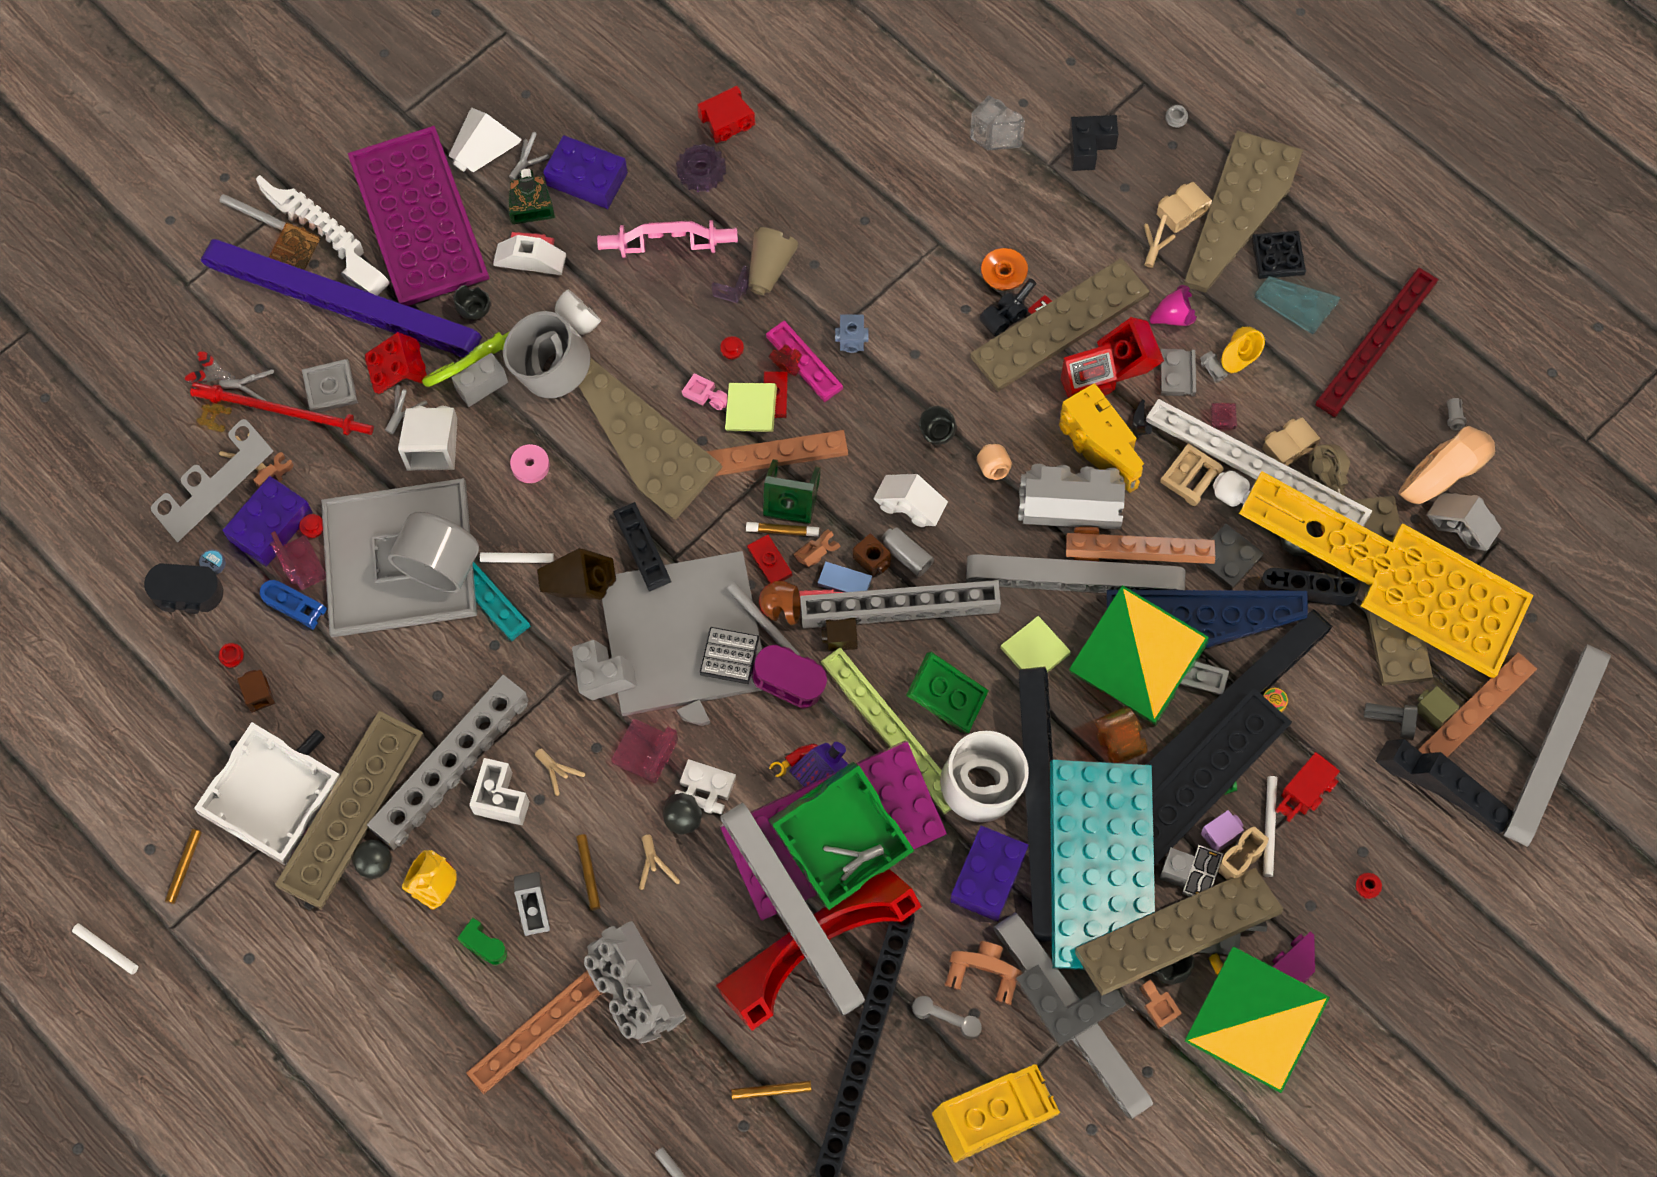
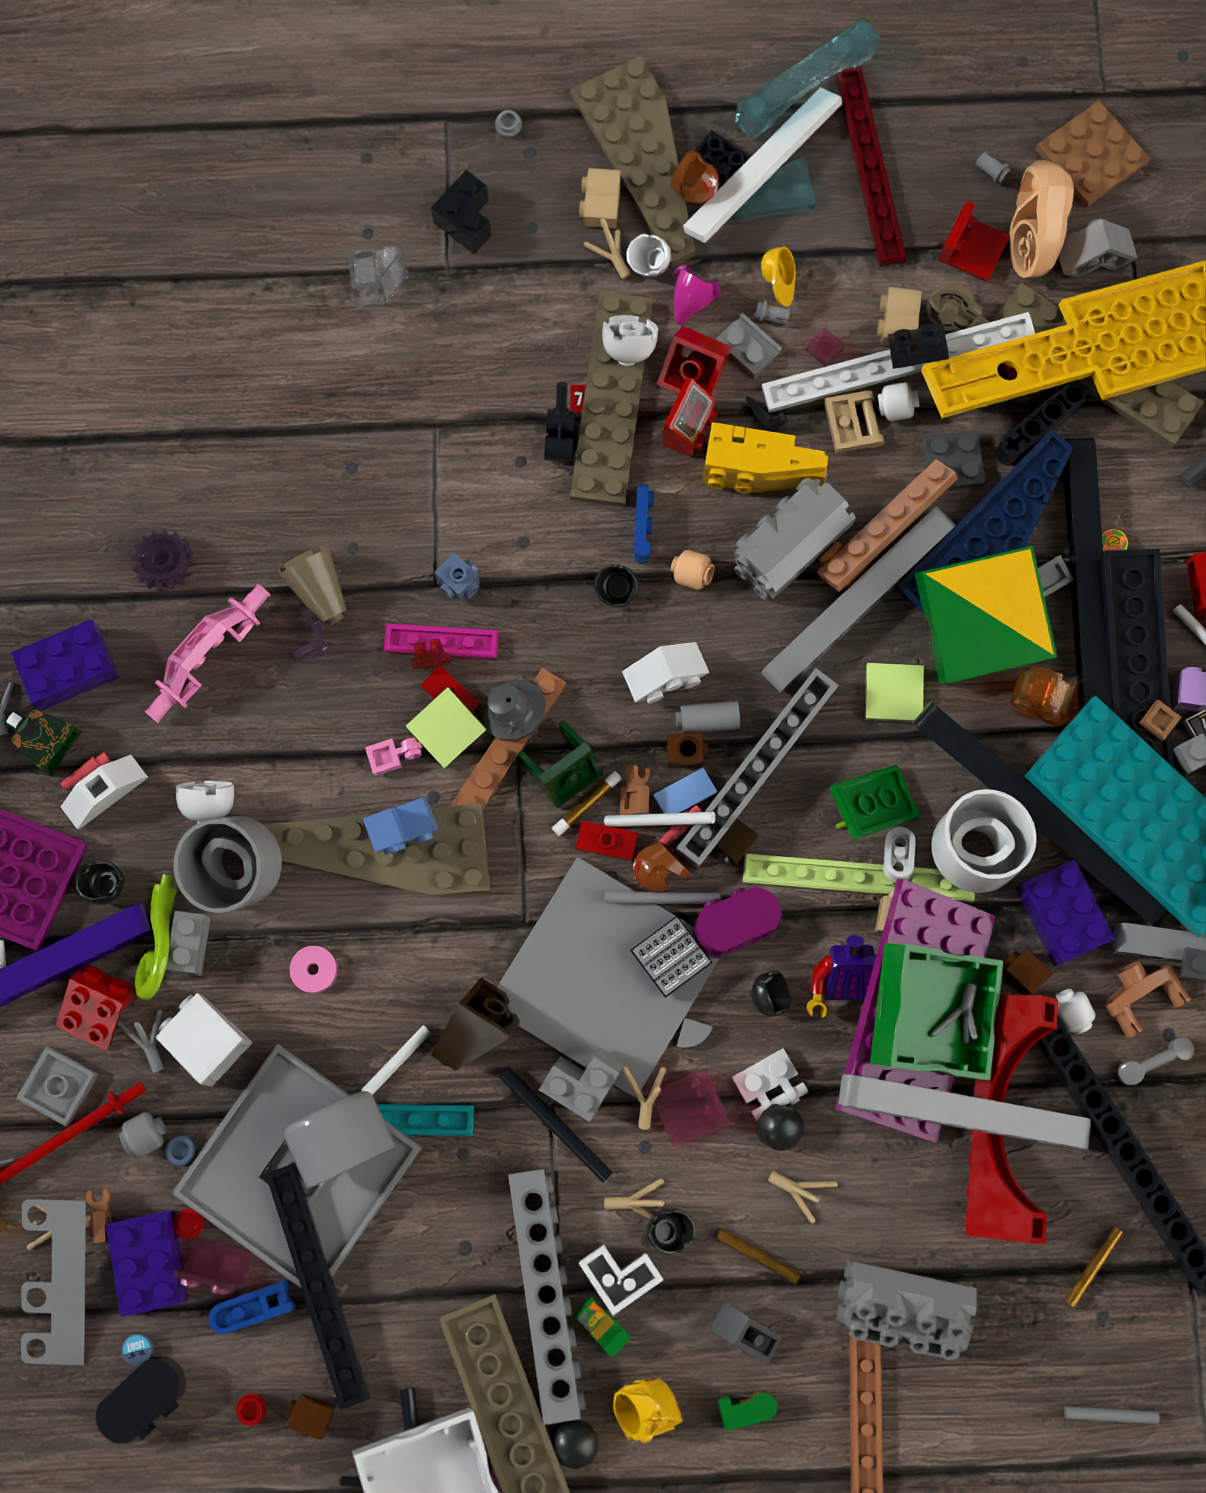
camera: 50 degrees left, 10 degrees up
(336, 629) = (318, 1286): none -> black tile
(342, 454) = (142, 1134): none -> light grey head
(352, 484) = (181, 1150): none -> sand blue tile
(458, 815) = (602, 1326): none -> green leg
(555, 801) = (670, 1230): none -> pearl dark grey hair
(561, 682) = (555, 1124): none -> black piece
(623, 719) = (646, 1103): none -> tan plant
(642, 546) = (493, 941): black plate -> none
(658, 426) = (401, 824): none -> medium blue brick
(726, 114) = (130, 490): red hips -> none
(732, 347) = (369, 691): red plate -> none
(763, 736) = (770, 994): none -> pearl dark grey hair
(799, 434) = (517, 717): none -> dark grey hat
(810, 574) = (660, 819): none -> white bar
(926, 737) = (897, 856): none -> white plate
(927, 881) = (1025, 971): none -> reddish brown brick
(928, 933) = (1075, 1011): none -> white head
(994, 407) = (643, 524): none -> blue plate
(1008, 261) = (515, 384): orange dish -> none
(1102, 294) = (628, 339): none -> white cylinder
(1173, 263) = (648, 255): none -> white hair
(1178, 823) = (1160, 720): none -> medium nougat tile
(1251, 249) = (695, 179): none -> dark orange helmet
(1275, 461) = (918, 346): none -> black plate
(1306, 277) = (762, 165): none -> white tile
(1347, 245) = (843, 51): none -> clear light blue arch
(1387, 443) = (973, 245): none -> red bracket
(1533, 467) = (1094, 153): none -> medium nougat plate

